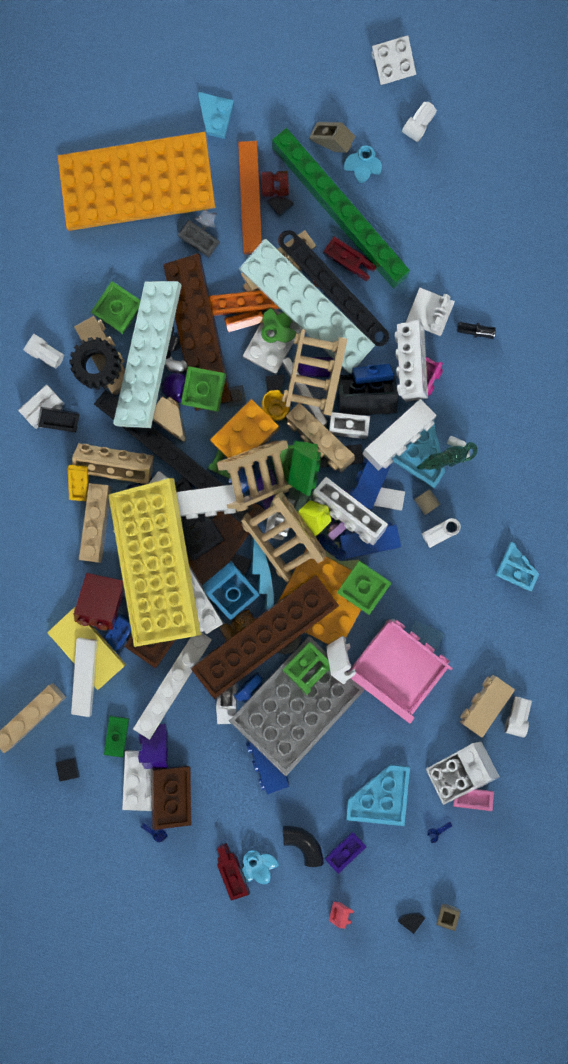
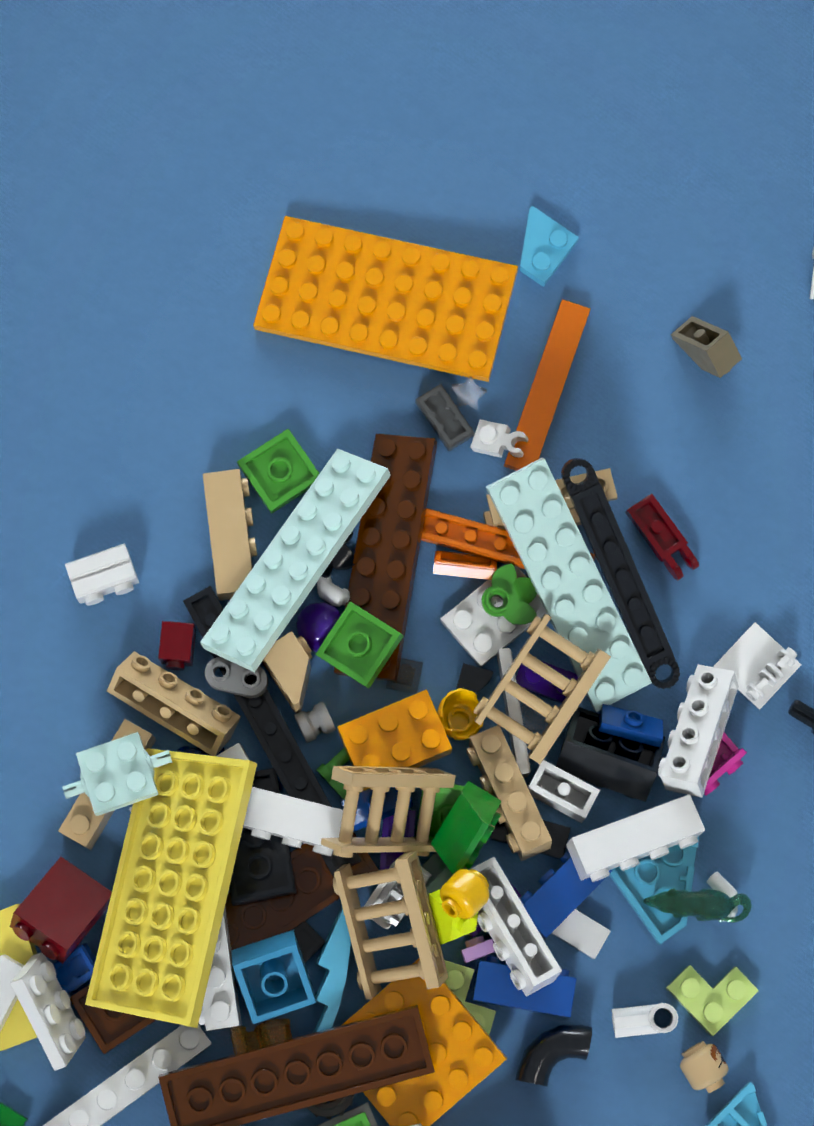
camera: 20 degrees right, 10 degrees down
(40, 349) = (137, 486): white piece -> none
(58, 419) = (119, 603): black tile -> none
(78, 482) = (108, 711): yellow plate -> none
(84, 352) = (204, 517): black tyre -> none
(98, 515) = (117, 774): none -> light aqua plate
(101, 430) = (177, 645): none -> dark red brick
(115, 657) = (49, 1010): none -> white plate
(141, 435) = (235, 678): none -> light grey plate
(196, 442) = (314, 722): none -> light grey wheel
(231, 240) = (494, 438): none -> white plate
(268, 179) = (581, 378): clear red wheel -> none
(280, 204) = (588, 415): black tile -> none
(318, 503) = (464, 893): none -> yellow head
(331, 547) = (458, 972): clear blue axle -> none
(340, 208) = (678, 458): green brick -> none
(363, 166) = (737, 408): medium azure plate -> none
(364, 587) = (485, 1058): bright green plate -> none
(398, 565) = (550, 1048): none -> black cylinder
(427, 502) = (639, 962): dark tan brick -> none
(475, 509) = (710, 1005): none -> yellowish green plate
(483, 544) = (704, 1067): none -> tan head

